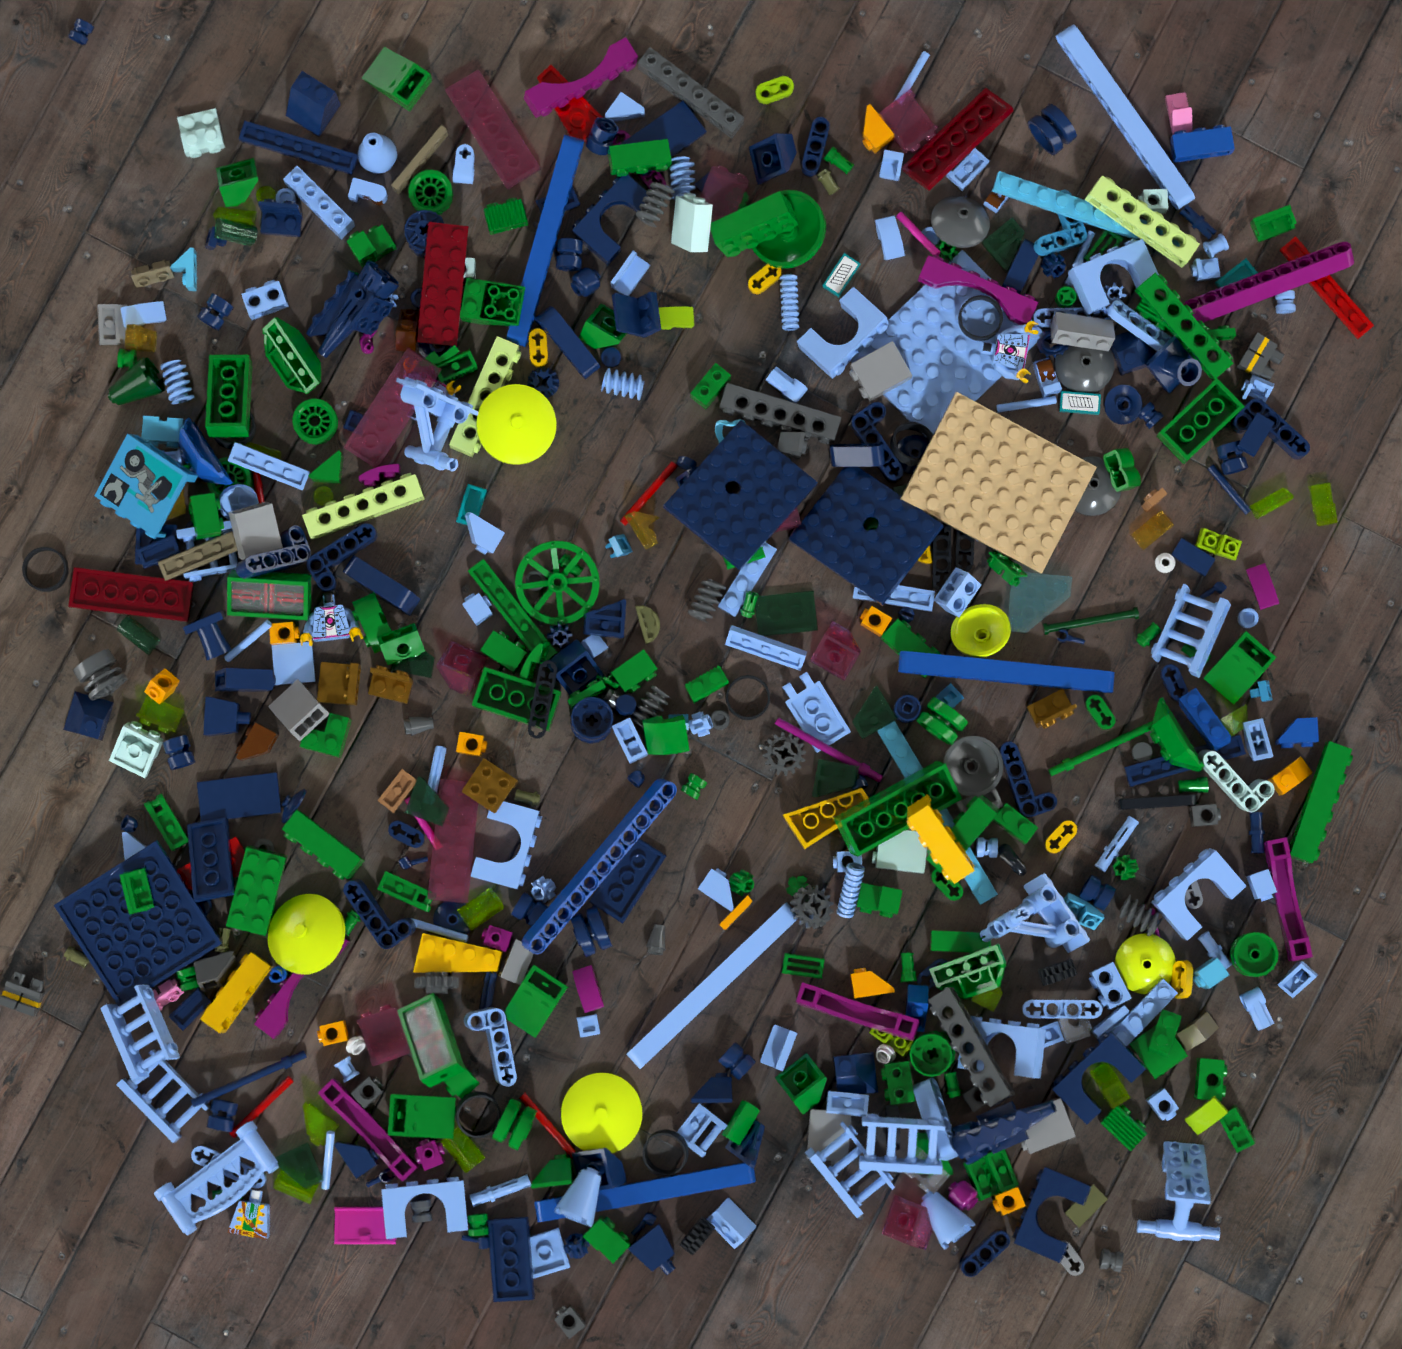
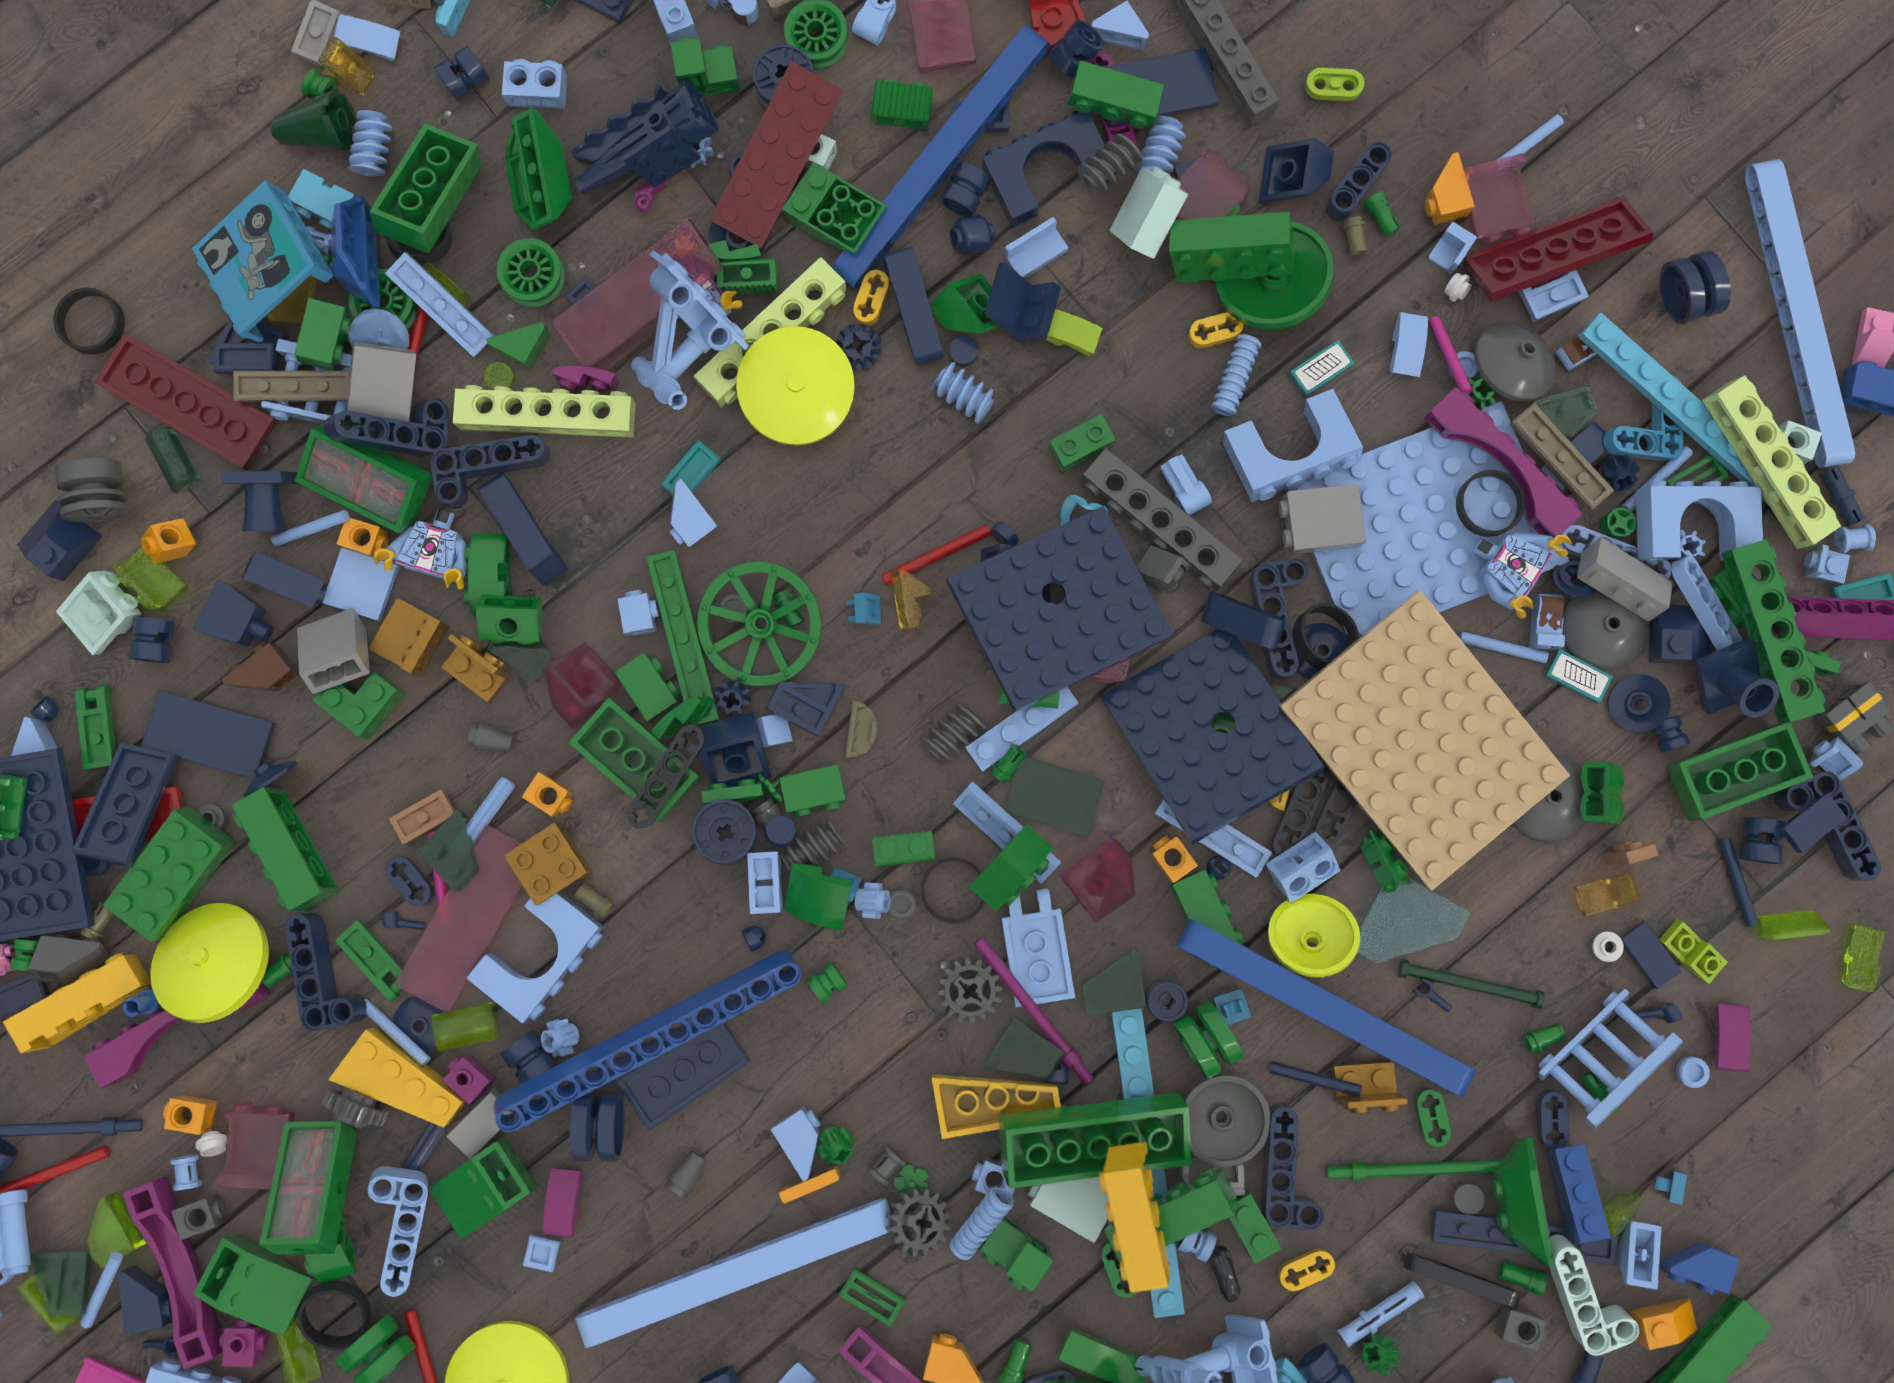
camera: 25 degrees right, 0 degrees up
(407, 330) = (702, 200): reddish brown slope -> none
(778, 881) = (886, 1165): none -> dark grey bush
(779, 667) = (1012, 869): none -> green brick
(905, 188) = (1458, 287): none -> white plate
(1012, 271) = (1561, 457): none -> dark tan tile
(1018, 718) = (1316, 1079): none -> dark blue bar
(1239, 667) = (1657, 1138): green slope -> none

